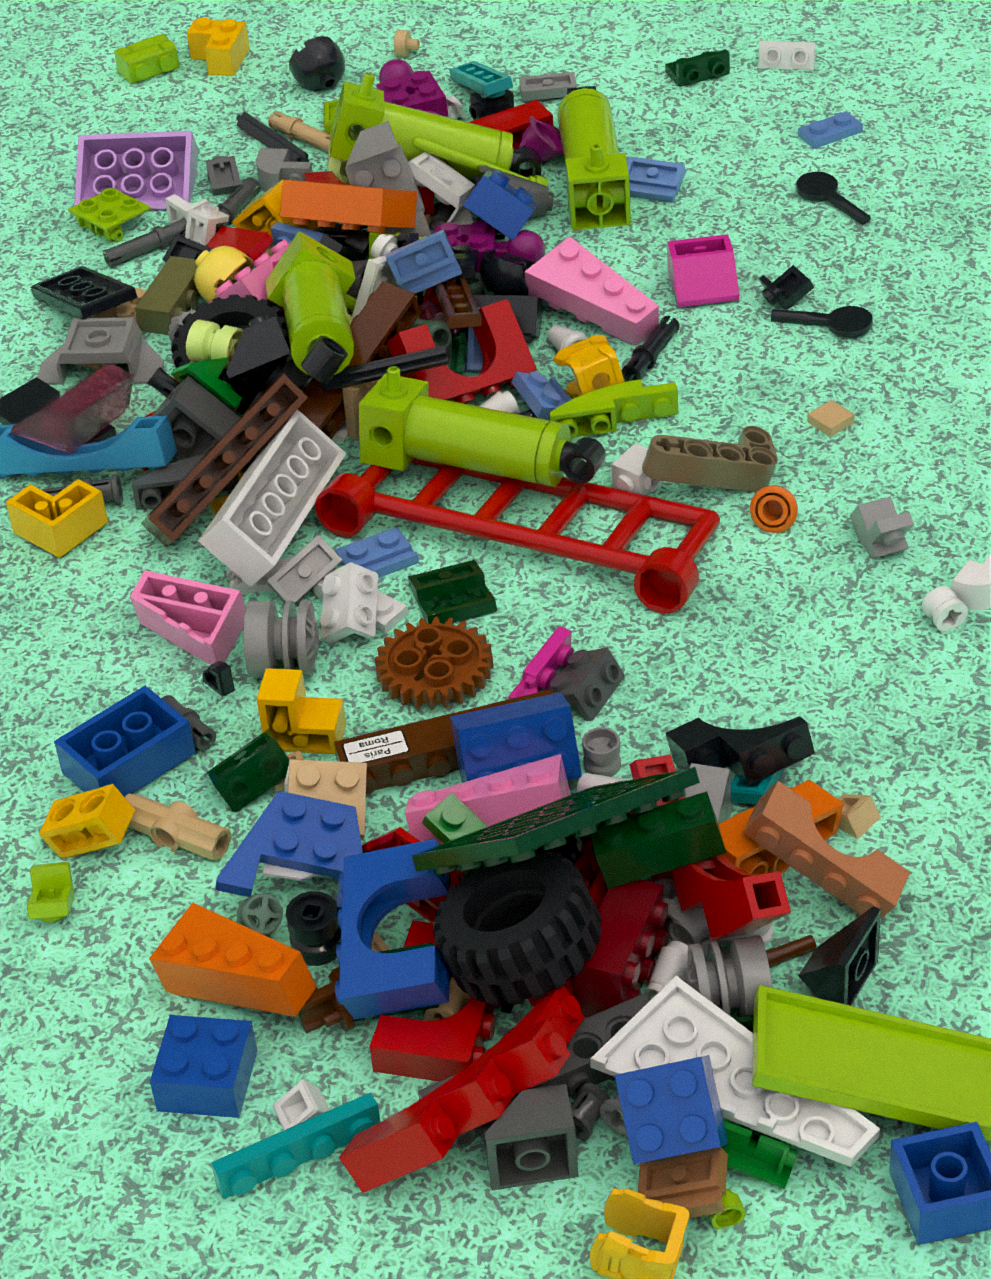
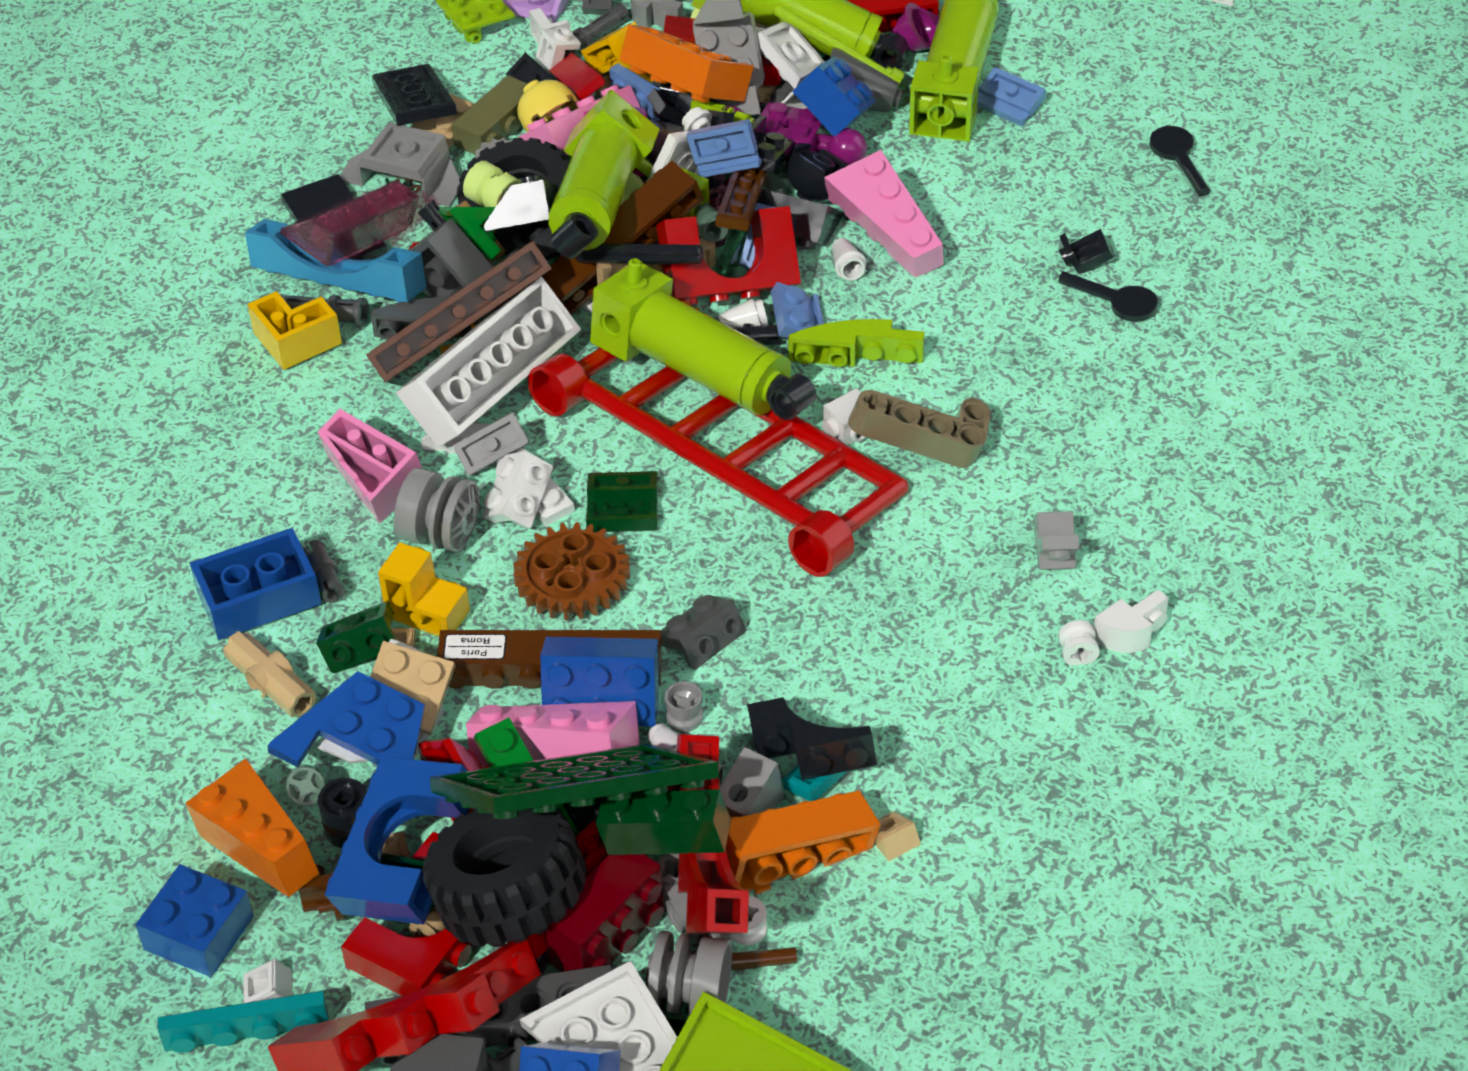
camera: 15 degrees right, 5 degrees up
(51, 892) = (136, 712): lime bracket -> none
(87, 821) = (191, 649): yellow brick -> none
(145, 243) = (495, 53): dark grey pin -> none
(219, 678) = (372, 534): black tile -> none
(380, 553) = (571, 442): medium blue plate -> none
(545, 664) = (670, 601): dark pink hinge -> none
(592, 364) = (849, 292): yellow piece -> none
(645, 355) = (915, 291): black pin -> none
(670, 963) = (643, 945): white cone -> none
(702, 270) = (1009, 213): dark pink slope -> none
(773, 509) = (961, 492): orange brick -> none
(786, 828) = (799, 840): nougat arch -> none
(830, 129) = (1215, 81): medium blue plate -> none
(830, 418) = (1066, 406): tan tile -> none
(845, 960) = (807, 988): black slope -> none

